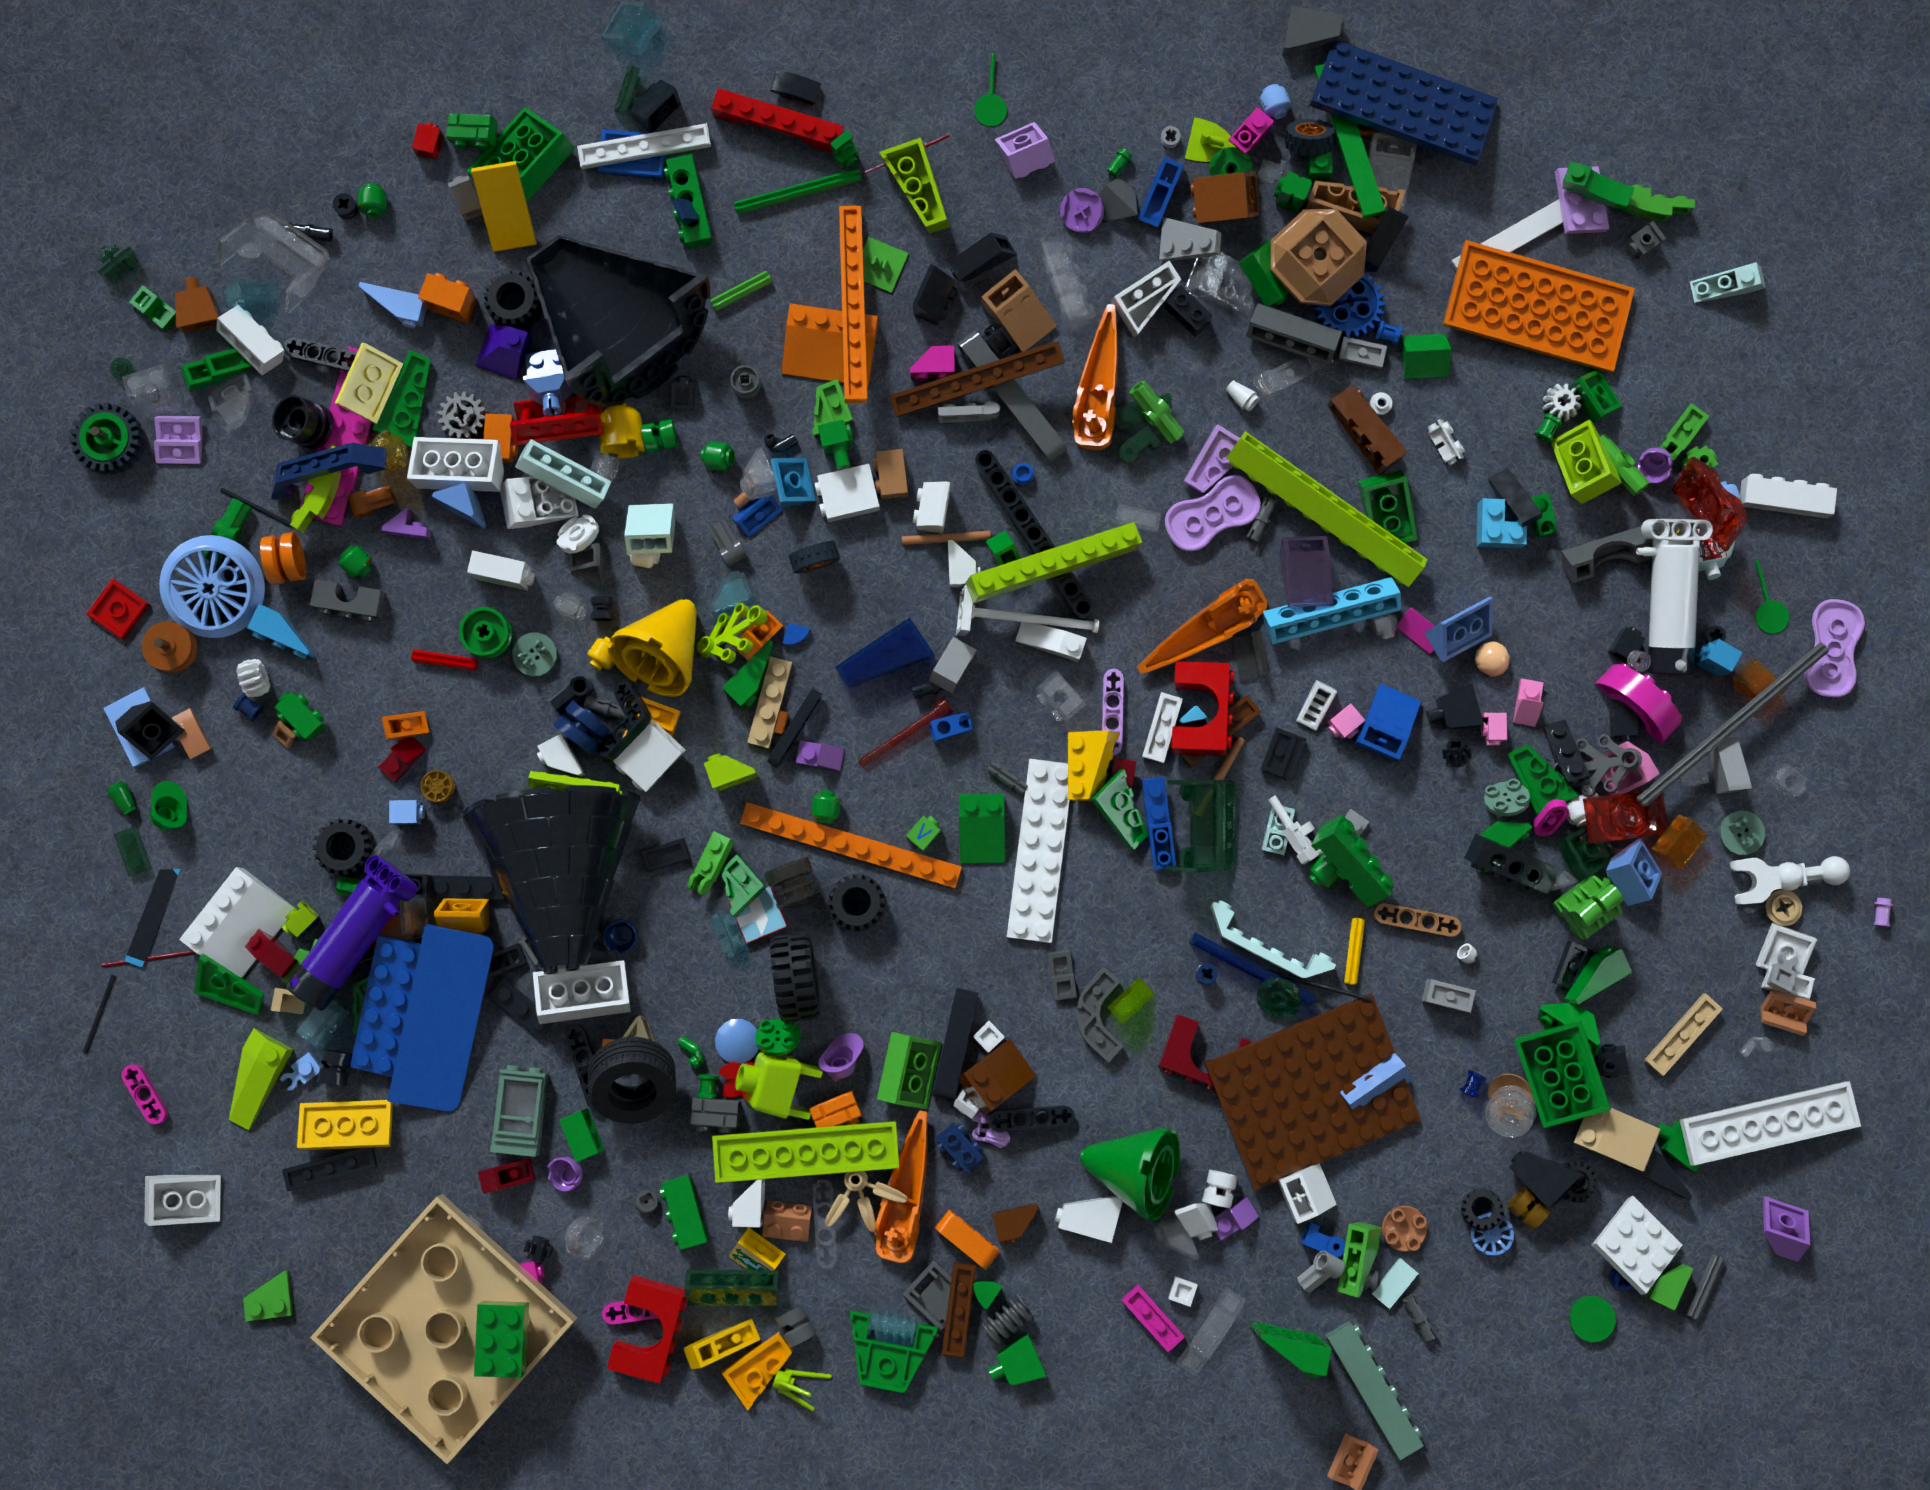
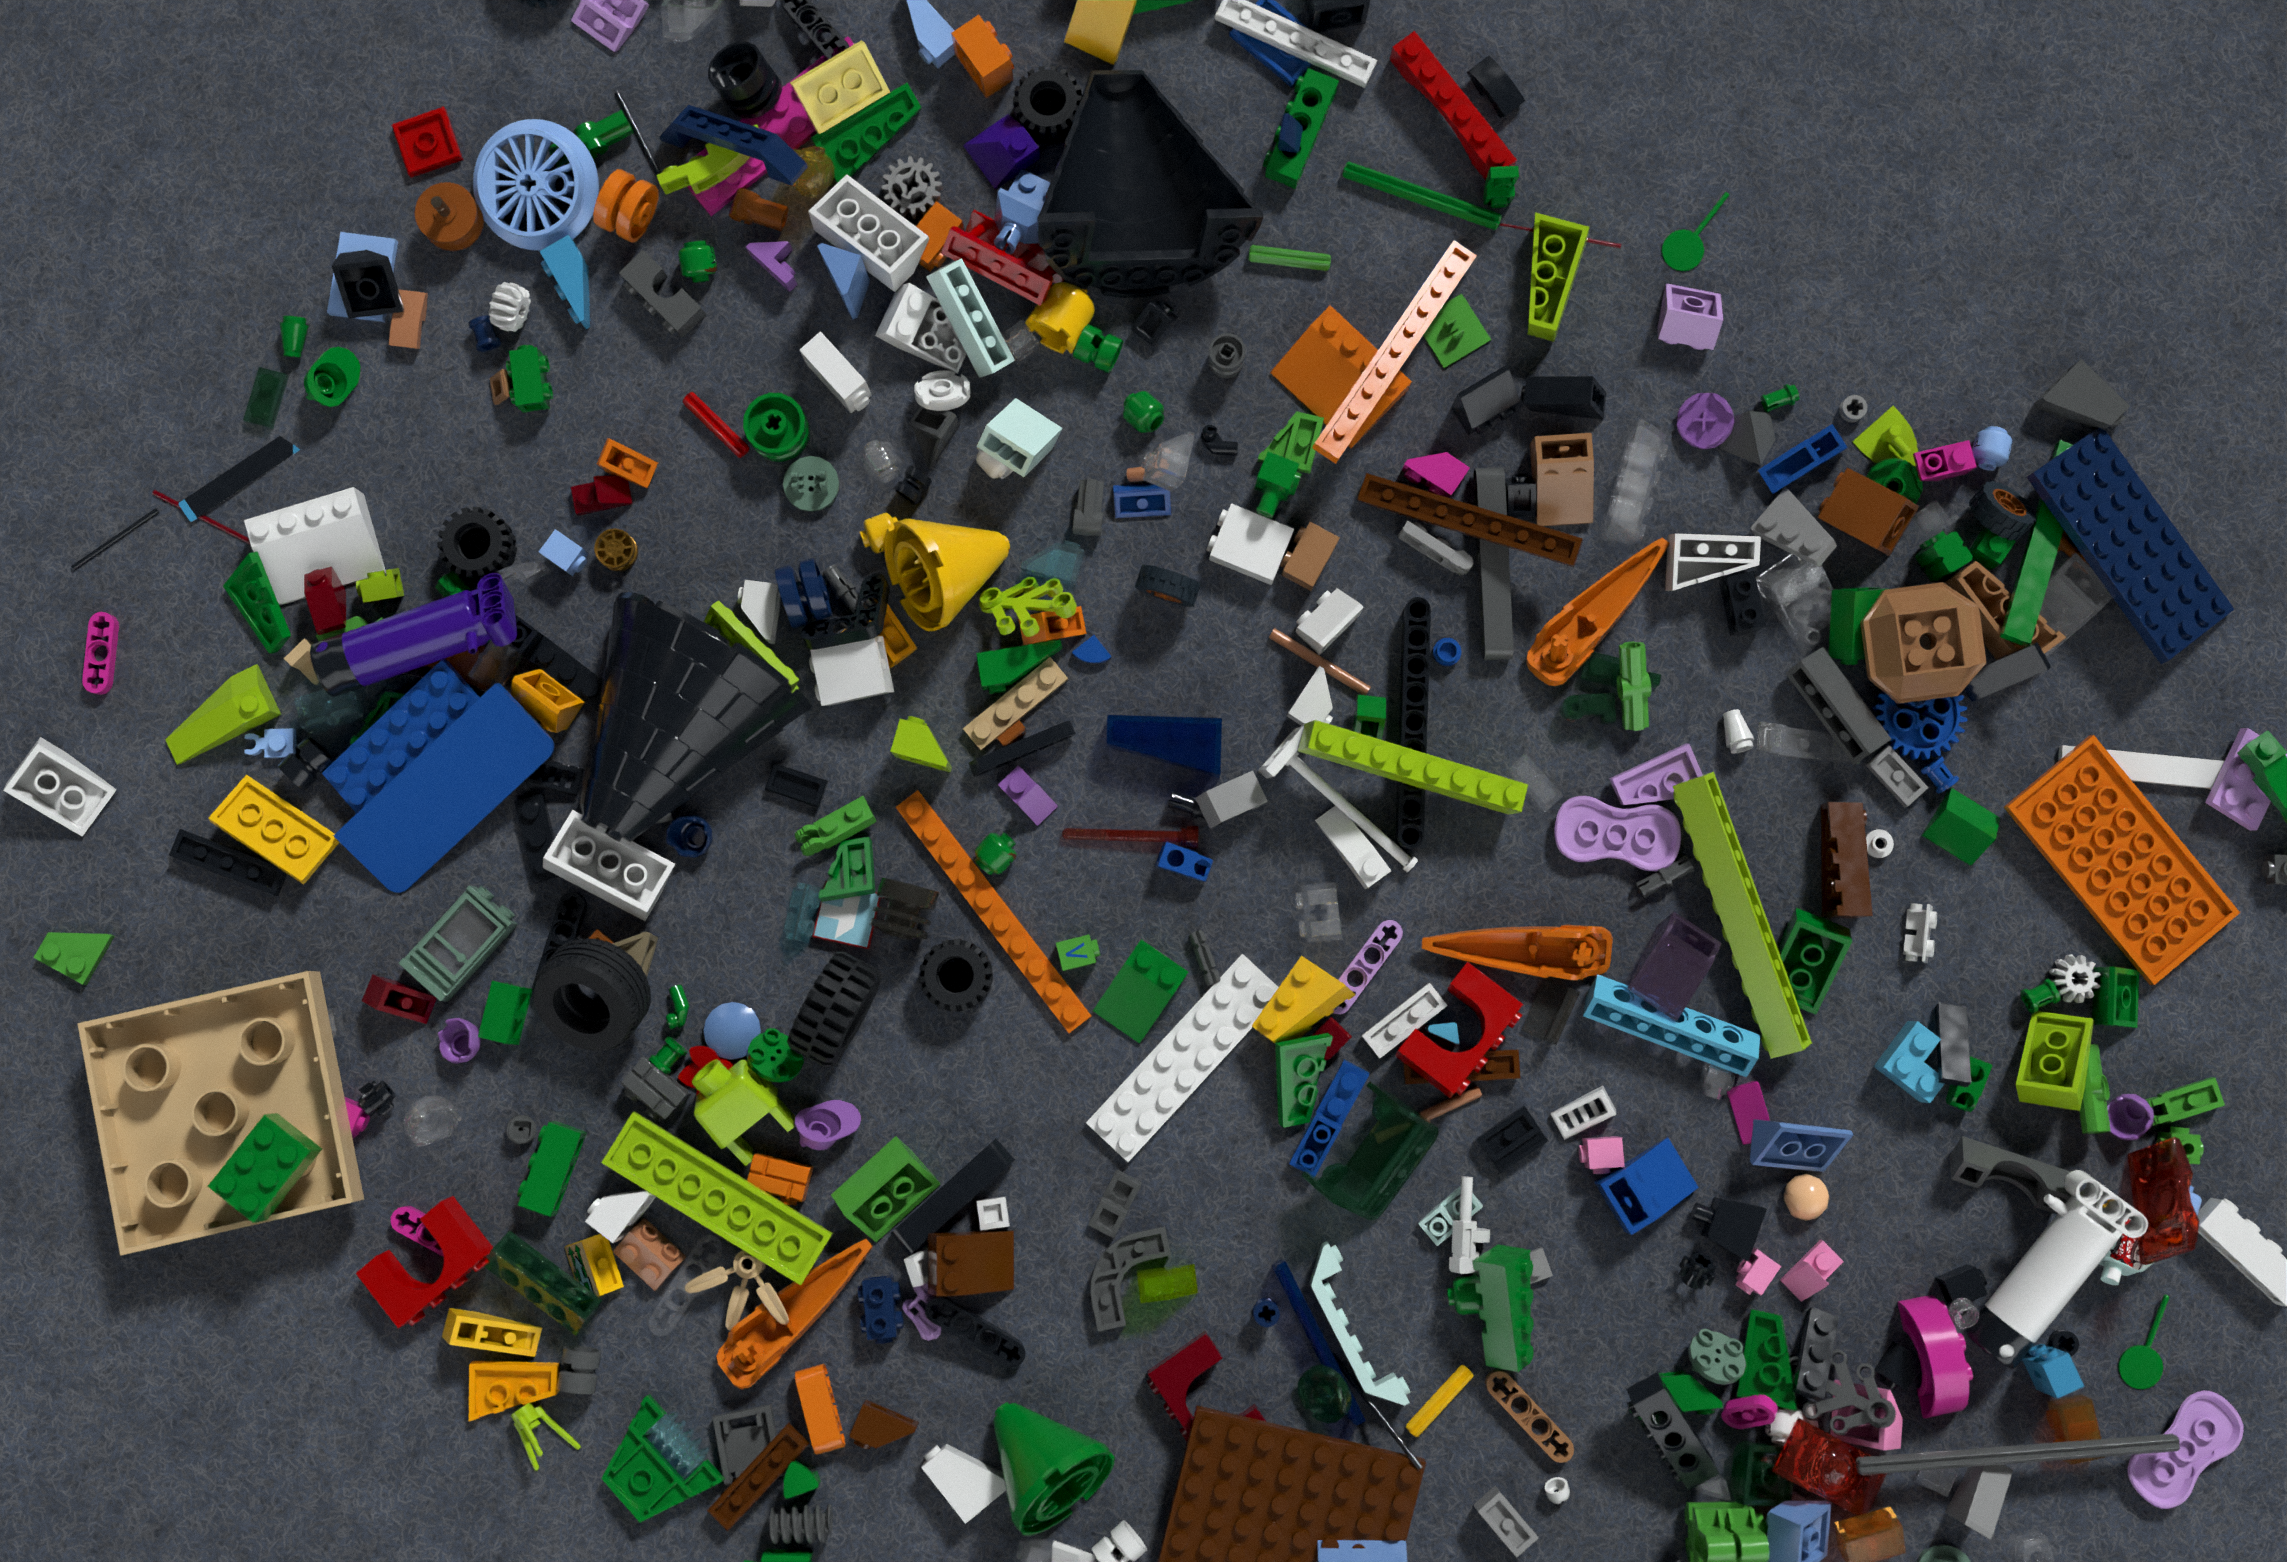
camera: 35 degrees right, 0 degrees up
(569, 693) = (818, 549): black piece -> none
(793, 481) = (1202, 492): dark azure slope -> none

